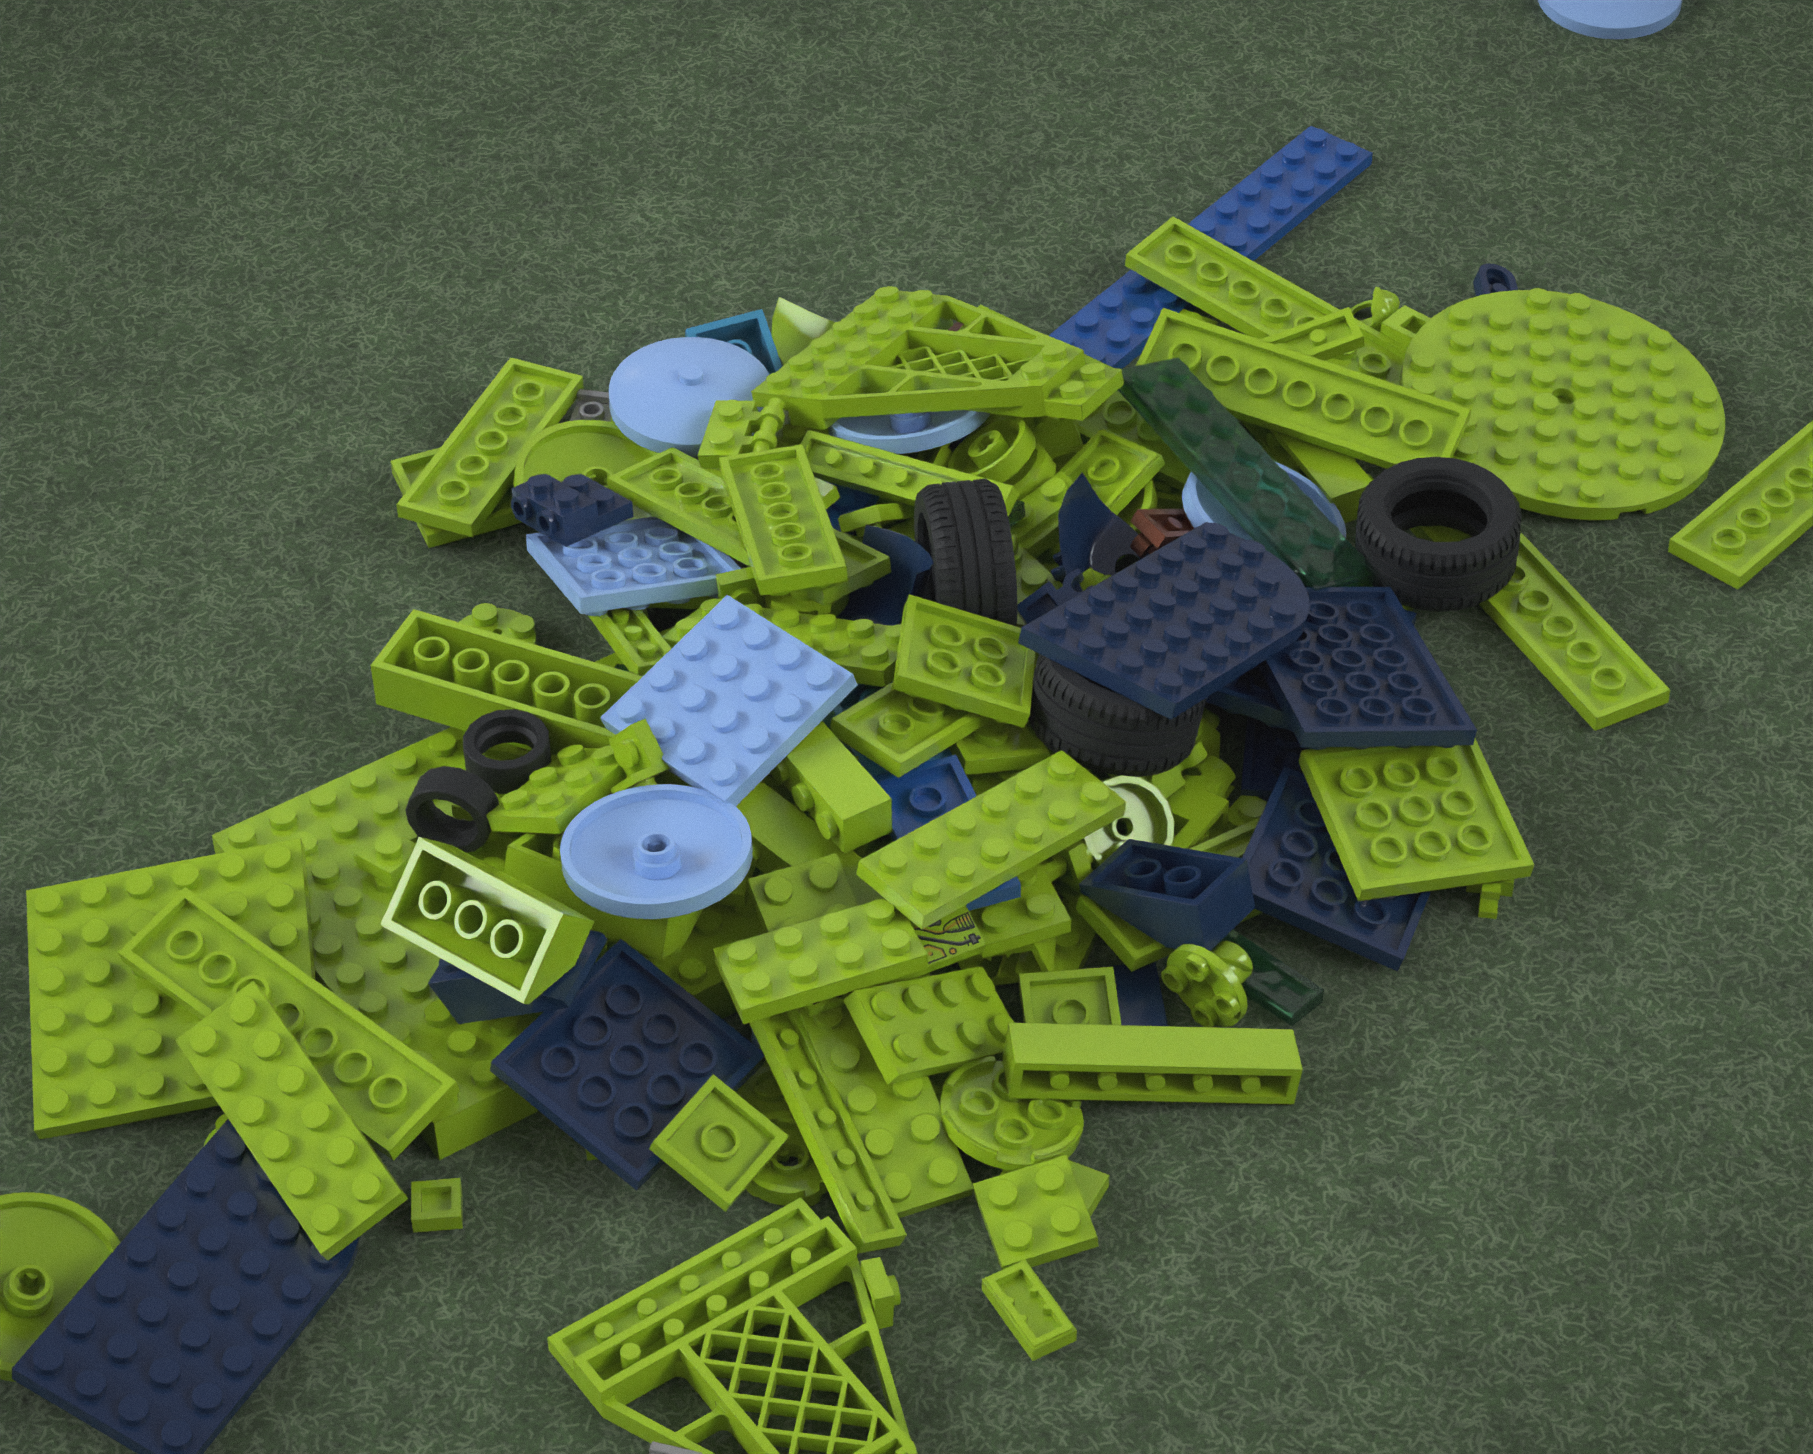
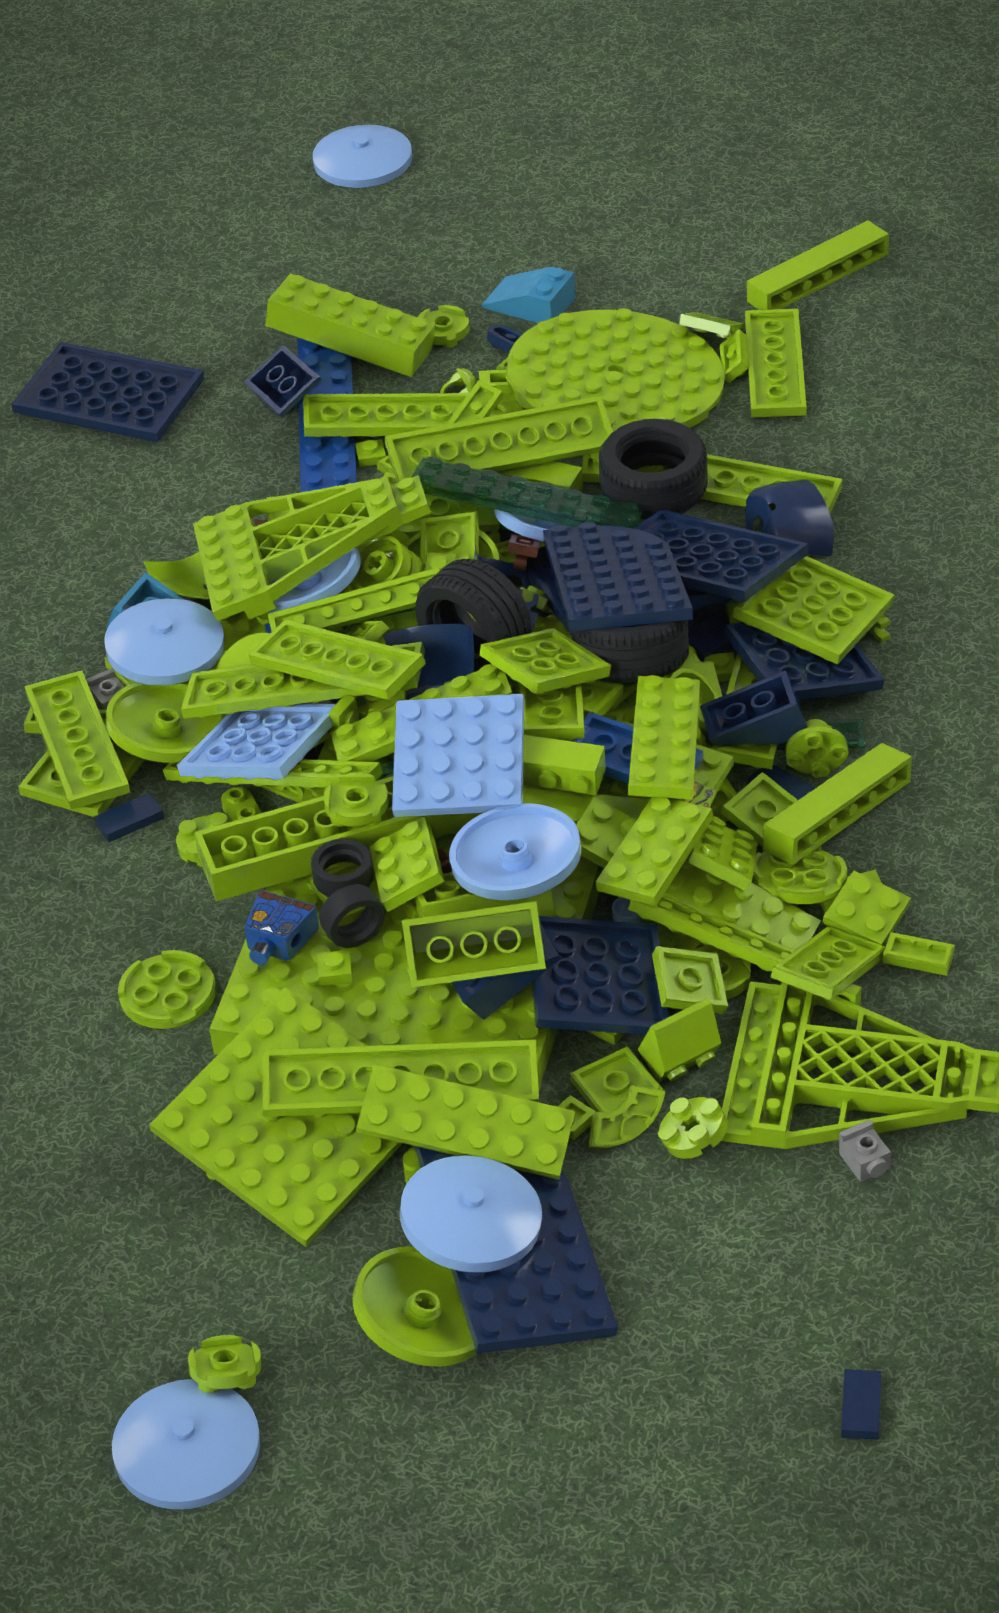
camera: 40 degrees left, 0 degrees up
(176, 1223) = (470, 1213): none -> light blue dish
(258, 768) = (167, 989): none -> lime tile
(379, 770) = (279, 927): none -> blue torso
(455, 565) = (129, 817): none -> dark blue tile
(483, 1252) = (627, 1120): none -> lime tile
(525, 1205) = (607, 1080): none -> lime plate
(531, 1311) = (685, 1113): none -> lime plate
(566, 630) = (239, 804): none -> lime plate
(568, 508) = (186, 735): dark blue plate -> none
(587, 701) = (366, 811): none -> lime plate
(628, 1206) = (681, 1042): none -> lime slope
(638, 755) = (439, 816): lime bracket -> none
(732, 428) = (225, 637): lime plate -> none
(895, 1239) = (828, 962): none -> lime tile
(1008, 102) = (108, 391): none -> dark blue plate
(1172, 189) = (282, 381): none -> dark blue slope
(1328, 171) = (350, 324): none -> lime brick
(1463, 239) = (450, 324): none -> lime plate
(1547, 701) = (798, 514): none -> dark blue piece
(1594, 259) = (533, 294): none -> dark azure slope
(1734, 465) = (734, 356): none -> lime plate
(1752, 411) = (705, 323): none -> lime plate

